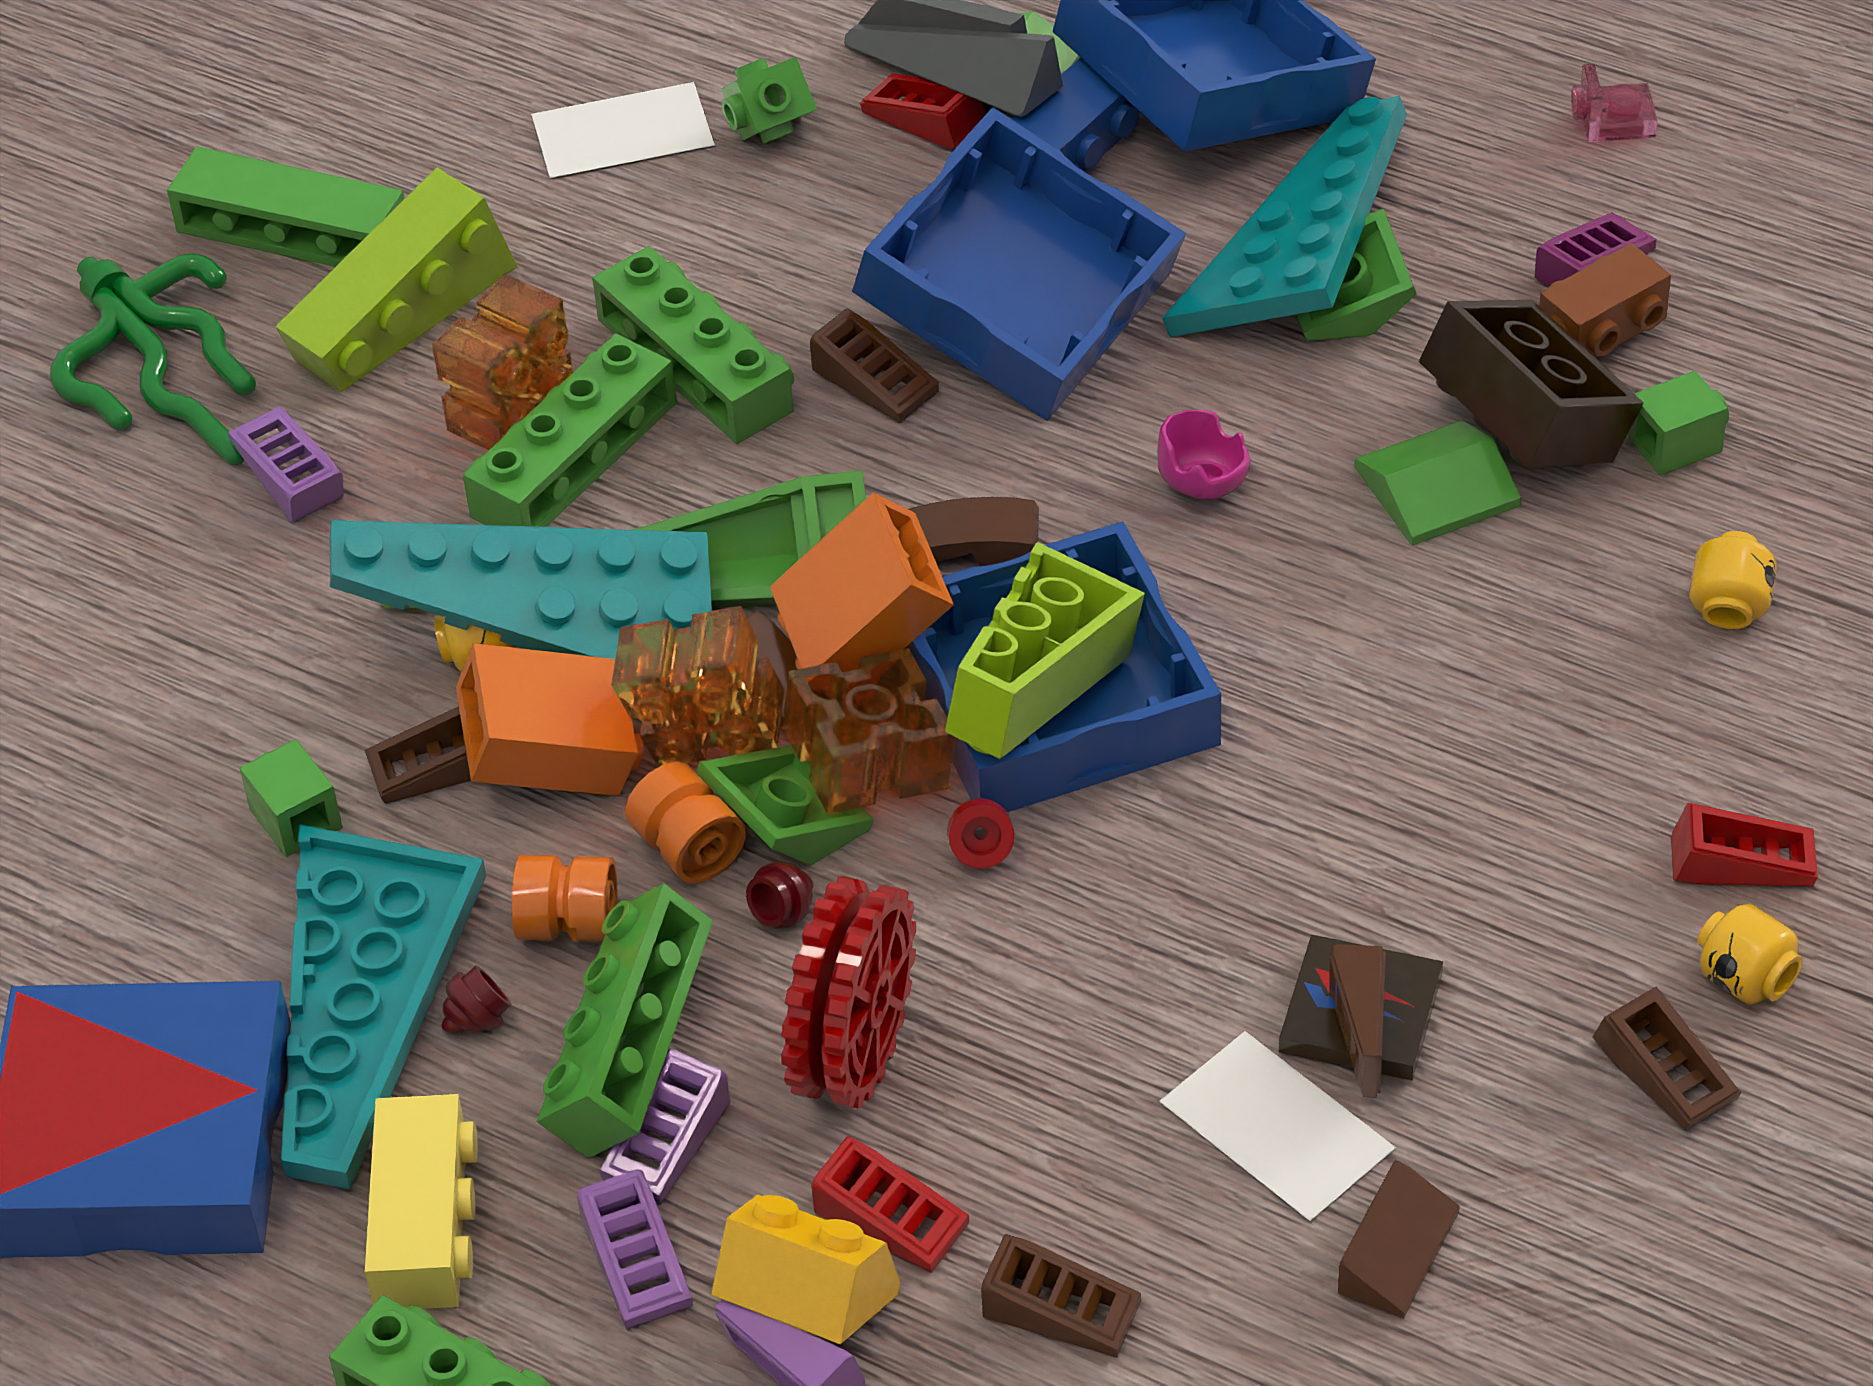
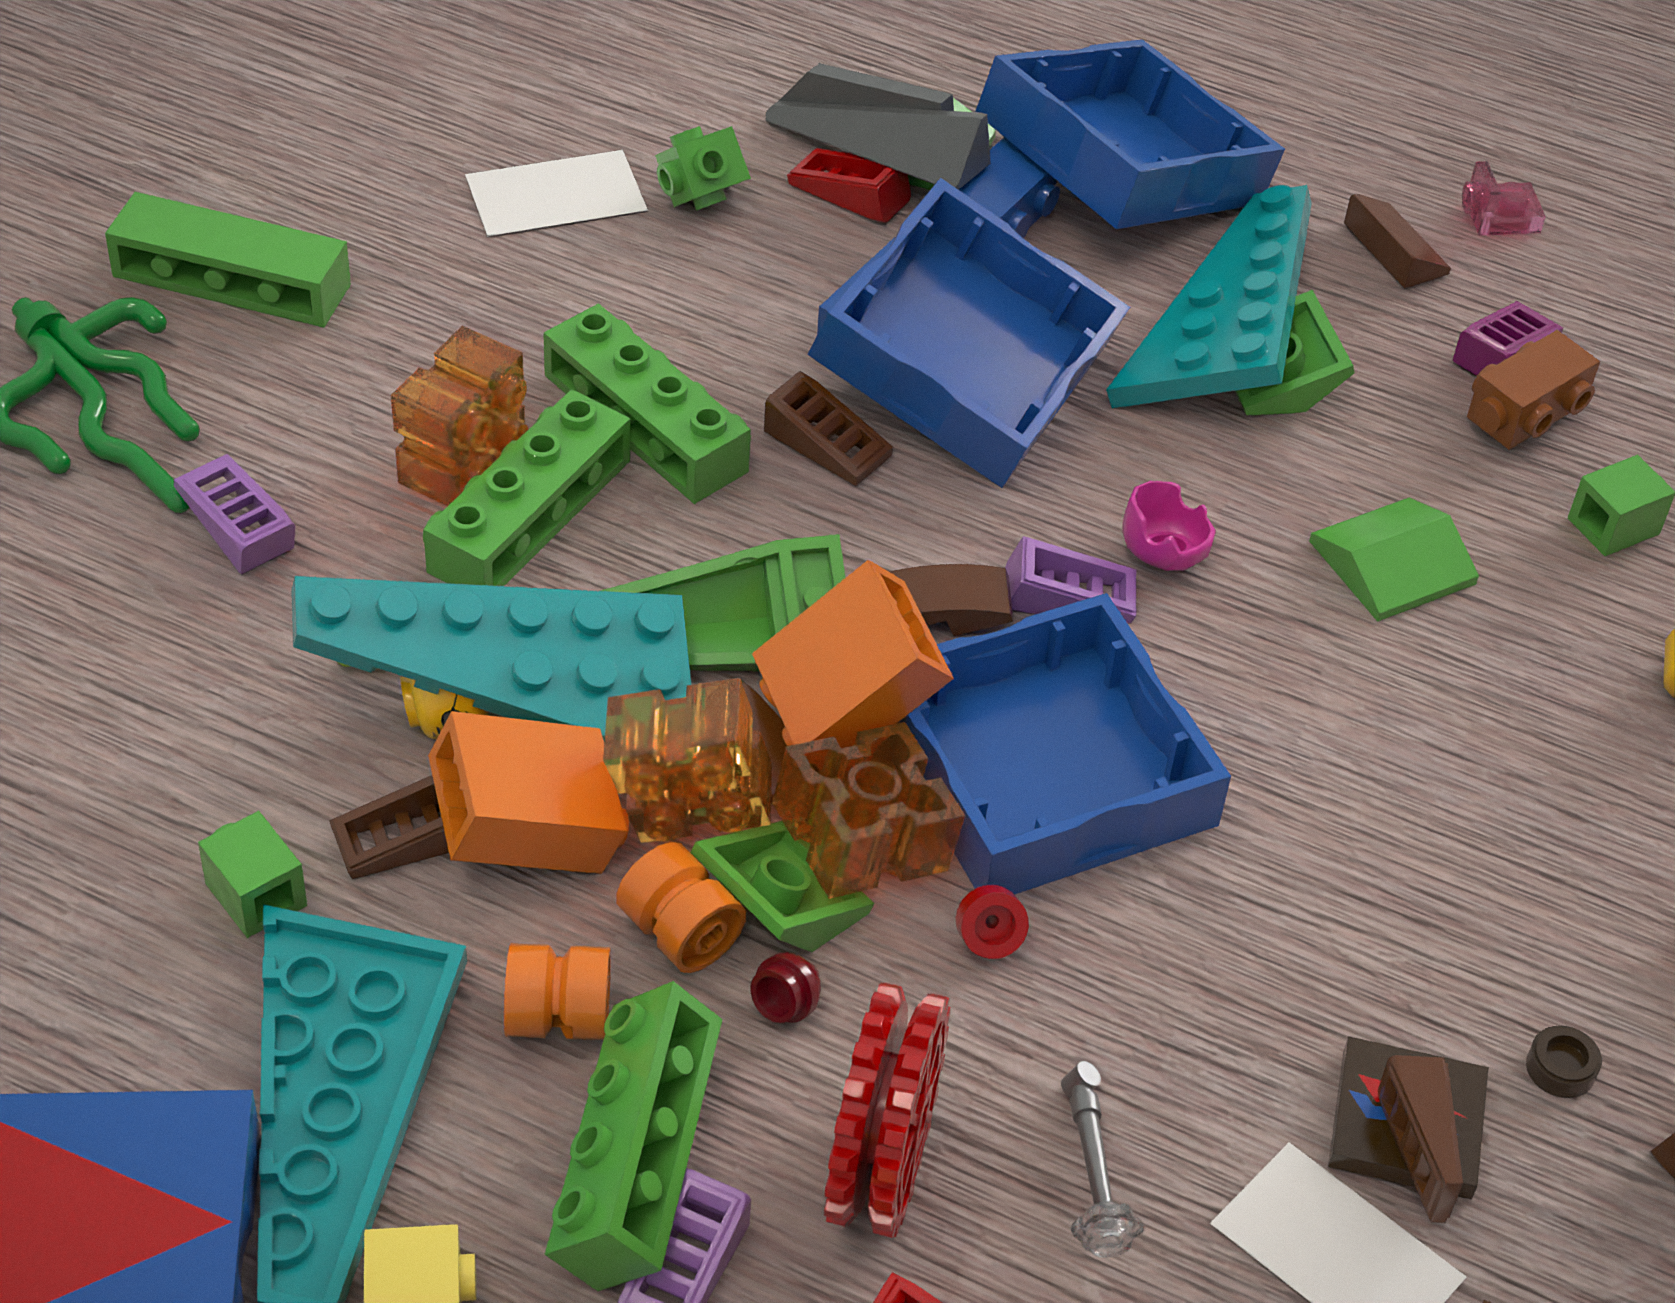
camera: 10 degrees left, 0 degrees up
(398, 282) = (344, 332): lime wedge -> none
(473, 1003) = (463, 1110): dark red plate -> none
(1041, 651) = (1047, 727): lime wedge -> none
(1054, 1100) = (1106, 1226): none -> piece
(1070, 495) = (1037, 564): none -> medium lavender slope
(1491, 151) = (1393, 241): none -> reddish brown slope
(1522, 957) = (1563, 1061): none -> dark brown tile
(1530, 383) = (1482, 463): dark brown brick -> none

